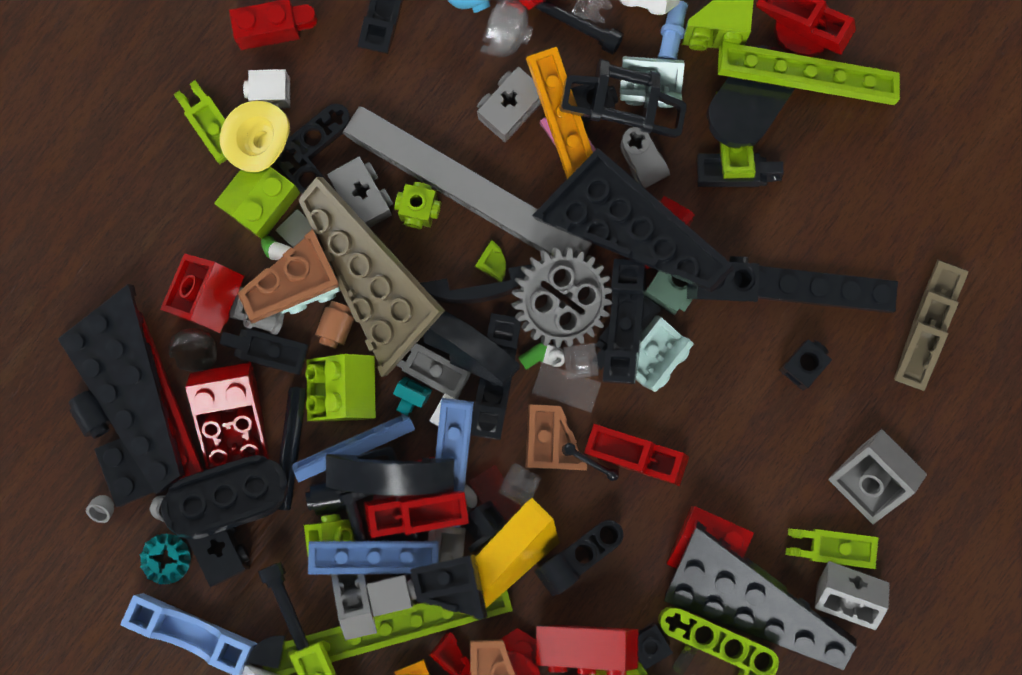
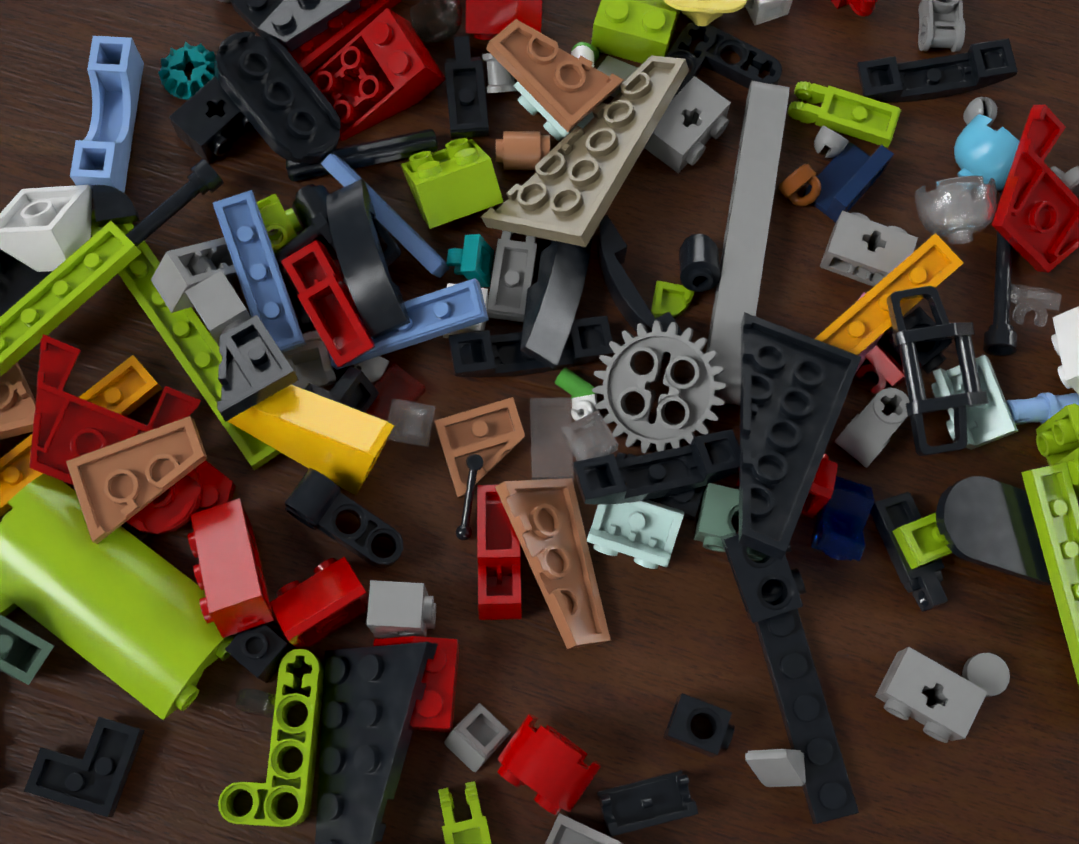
camera: 60 degrees right, 10 degrees down
(394, 71) = (845, 112): none -> lime hinge
(412, 92) = (832, 140): none -> light grey hinge
(417, 216) = (700, 189): lime brick -> none
(436, 131) = (796, 181): none -> dark orange tile
(446, 94) = (849, 179): none -> dark blue panel
(476, 230) = (699, 263): none -> black brick
(602, 130) = (885, 366): none -> red tile
(632, 593) = (320, 603): none -> red slope
(650, 414) = (556, 547): none -> nougat wing
(660, 537) = (400, 609): none -> light grey brick
(711, 214) = (842, 521): none -> clear blue brick
(759, 516) = (476, 737): none -> light grey slope
(799, 475) = (547, 765): none -> red brick
(838, 157) = (987, 672): none -> light grey tile
(844, 418) = (646, 803): none -> black hinge
(850, 321) = (778, 767): none -> light grey slope
(851, 187) = (954, 696): none -> light grey brick

